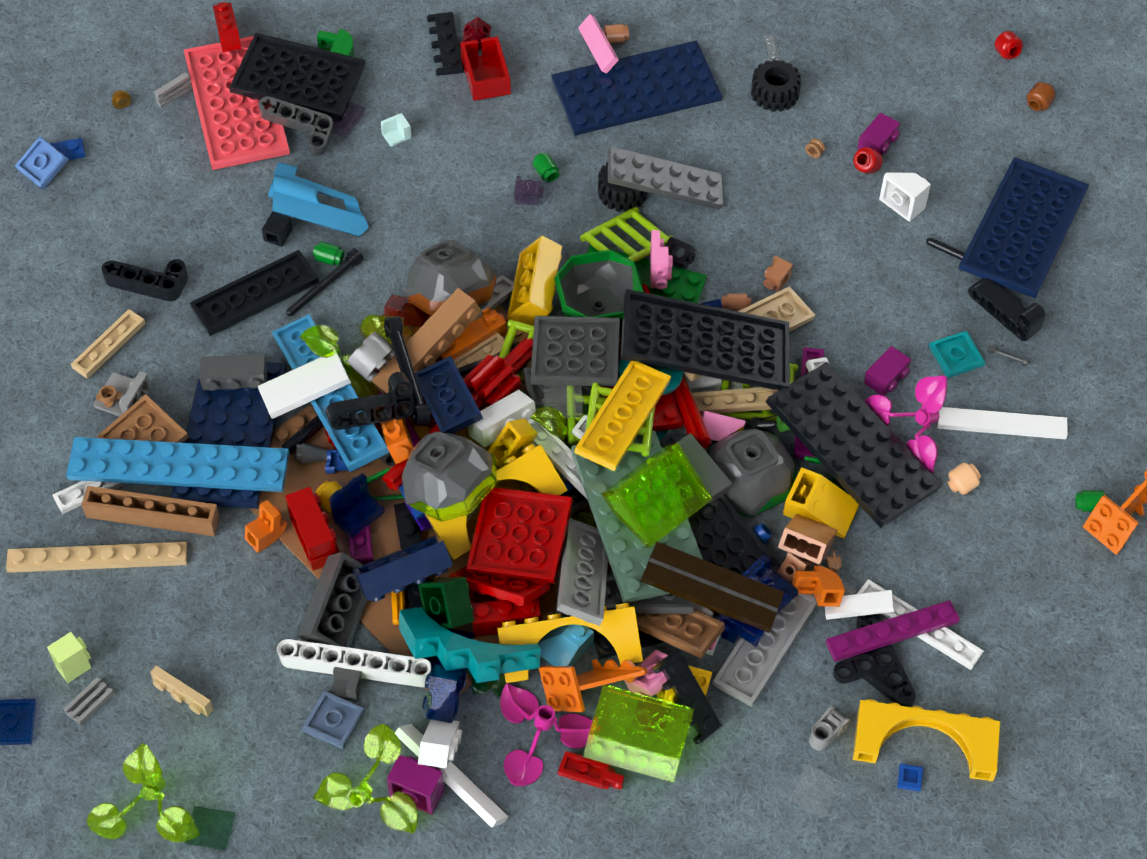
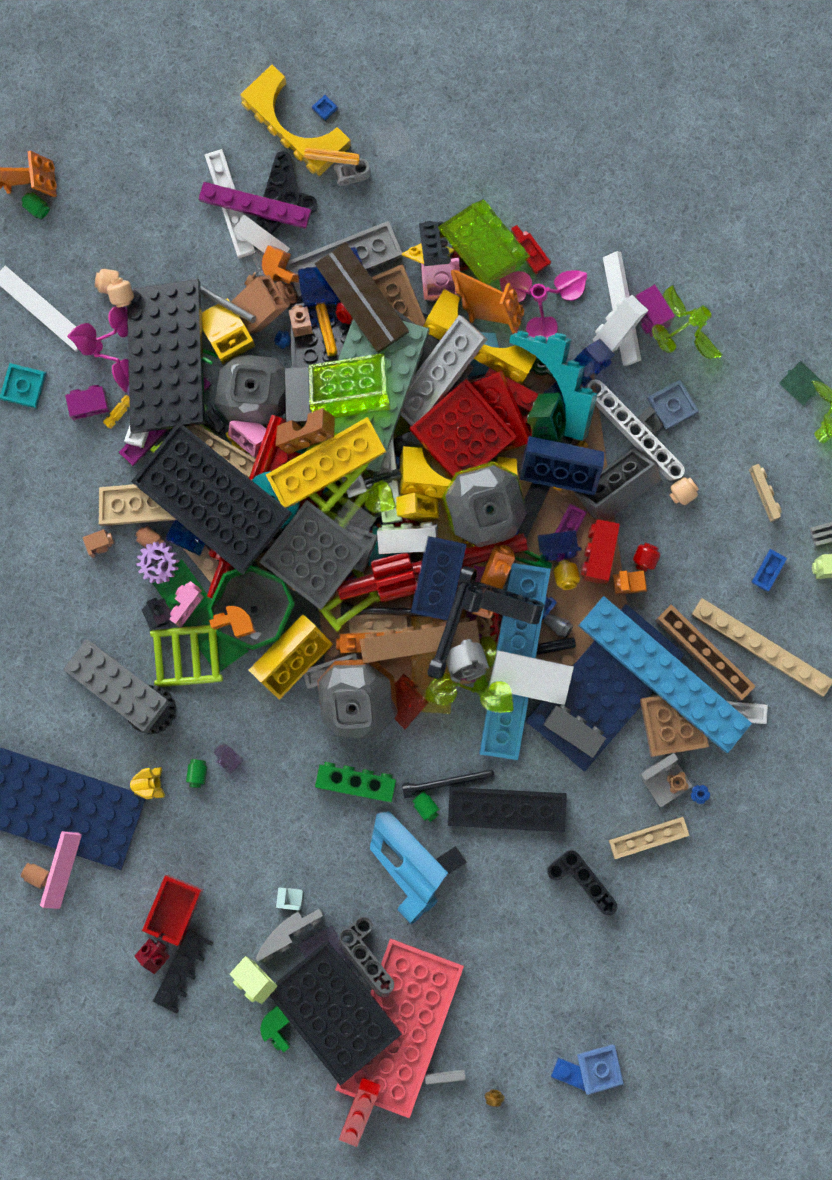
camera: 140 degrees left, 25 degrees up
(81, 408) = (695, 794): none -> blue plate
(132, 625) = (768, 570): none -> blue plate
(264, 561) = (646, 557): none -> red head
(265, 641) = (684, 491): none -> light nougat head
(380, 109) = (281, 938): none -> light grey slope
(381, 60) = (253, 980): none -> yellowish green brick
(404, 235) = (324, 781): none -> green brick
(564, 446) = (386, 477): none -> black axle
(580, 136) = (147, 783): none -> yellow brick
(601, 262) = (239, 620): none -> orange brick
(664, 429) = (317, 429): none -> dark orange arch
(711, 283) = (153, 556): none -> lavender gear
(722, 553) = (326, 330): none -> light orange axle
(750, 550) = (300, 321): none -> nougat brick
(841, 524) = (228, 305): none -> bar
(855, 379) = (117, 412): none -> yellow axle
(857, 717) = (331, 156): none -> light orange axle
(941, 465) = (120, 292): none -> light nougat head

